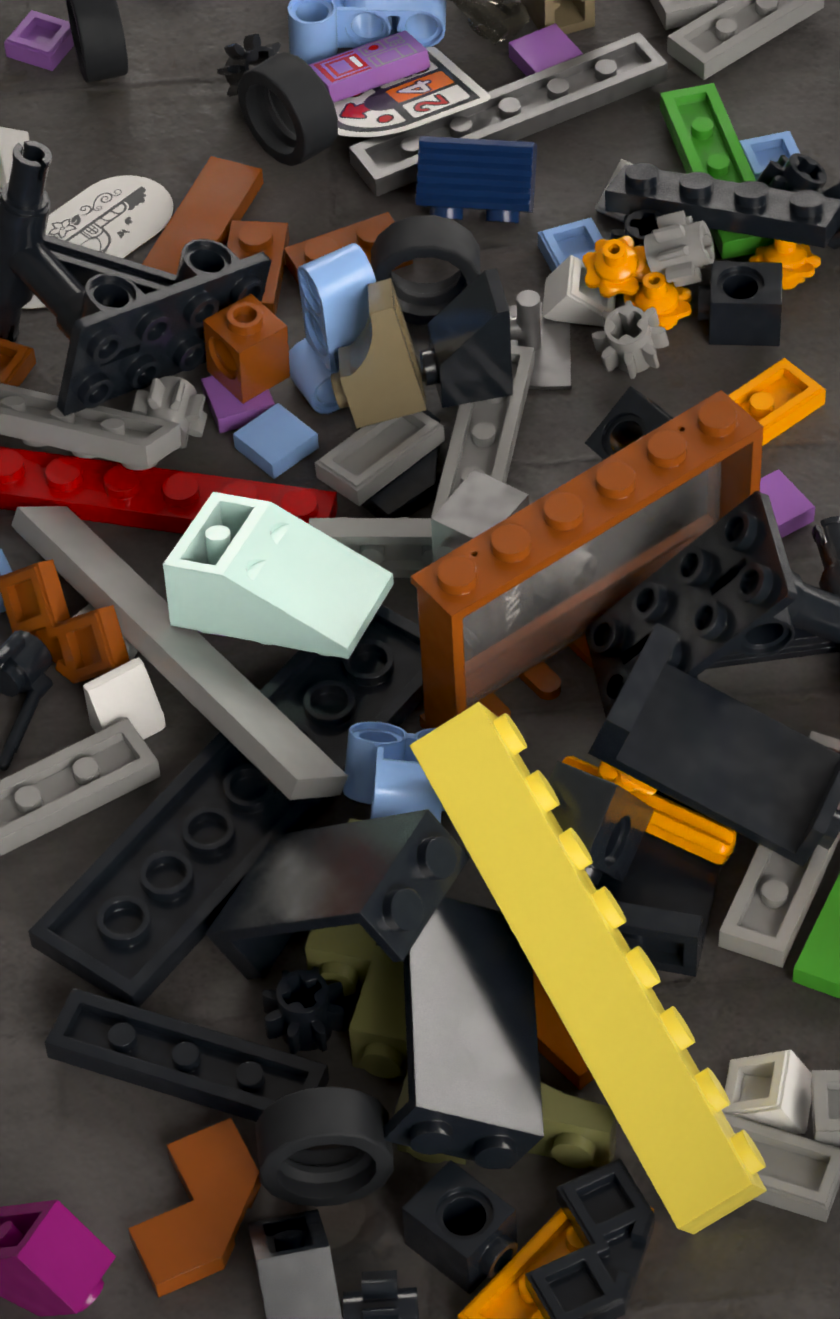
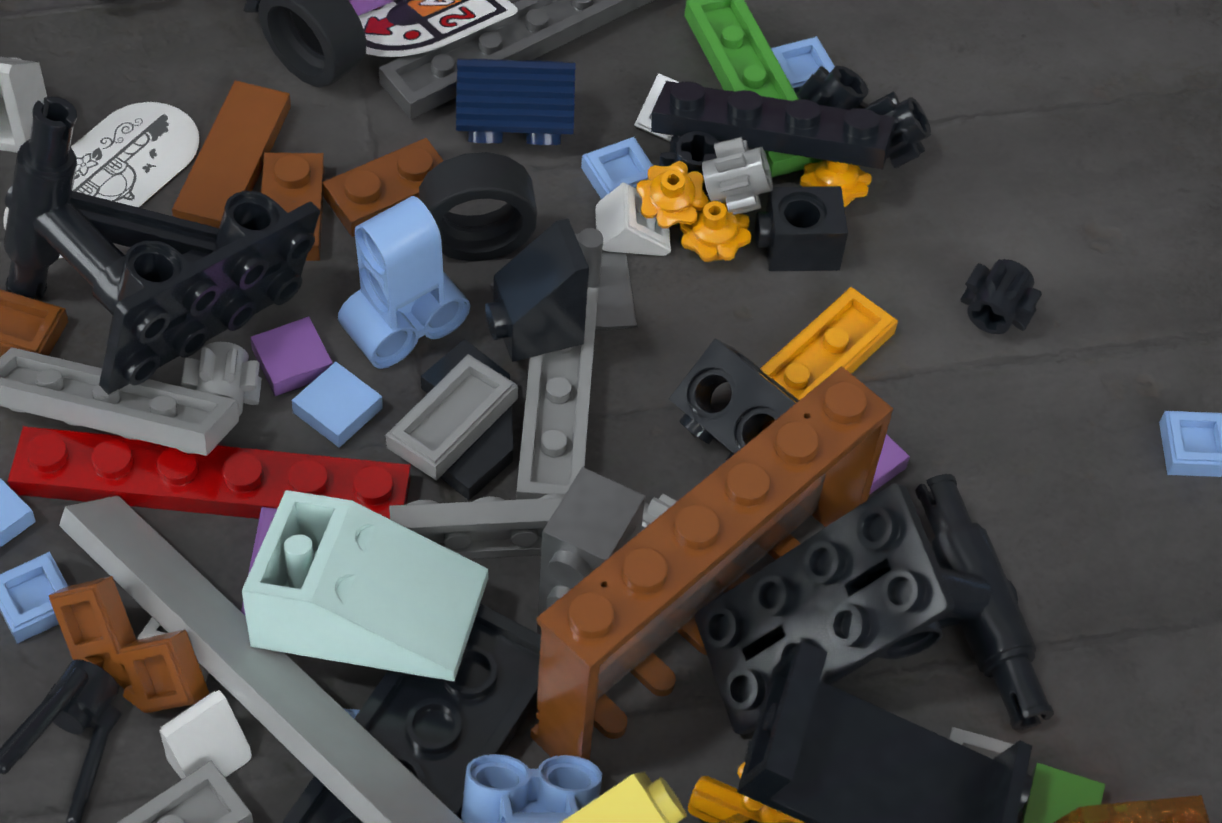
camera: 15 degrees left, 5 degrees up
(247, 348) = (299, 305): dark orange brick -> none
(380, 369) = (446, 324): dark tan arch -> none
(630, 339) = (696, 290): light grey gear -> none

